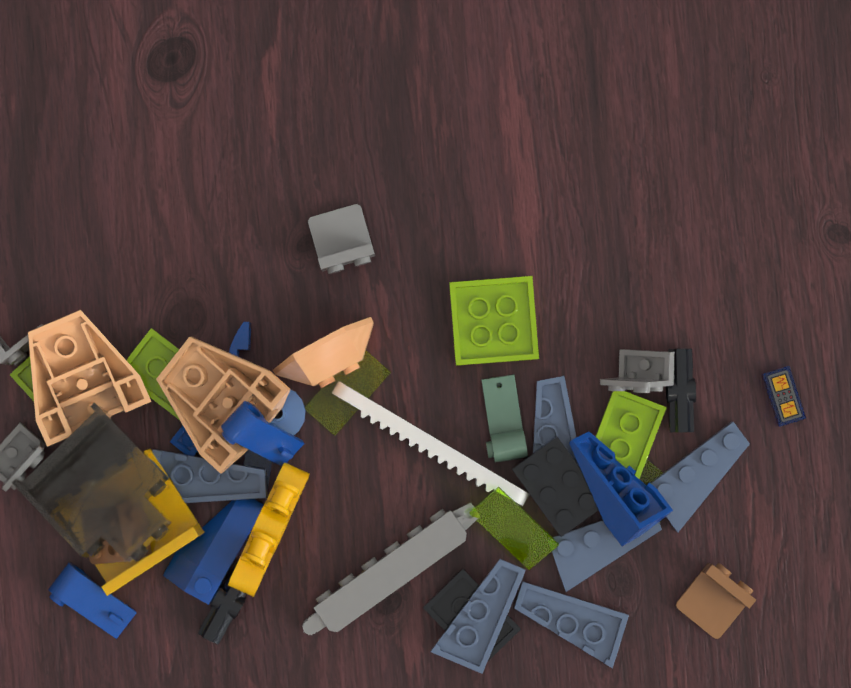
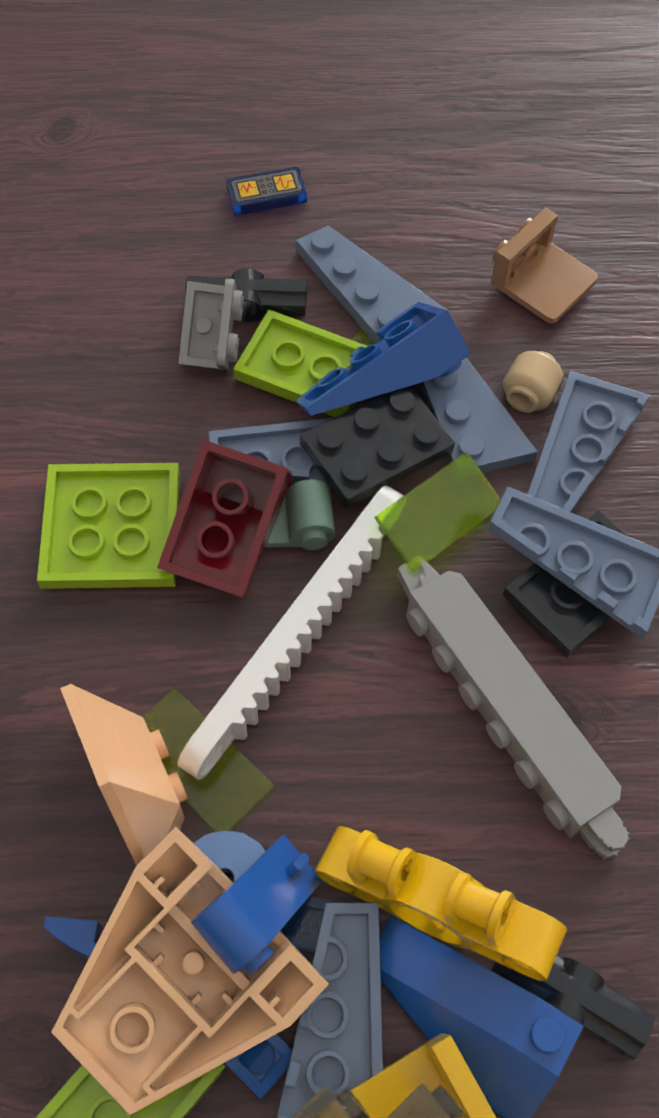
camera: 85 degrees left, 25 degrees down
(495, 394) = (225, 518): none -> dark red slope
(621, 590) = (532, 381): none -> tan head

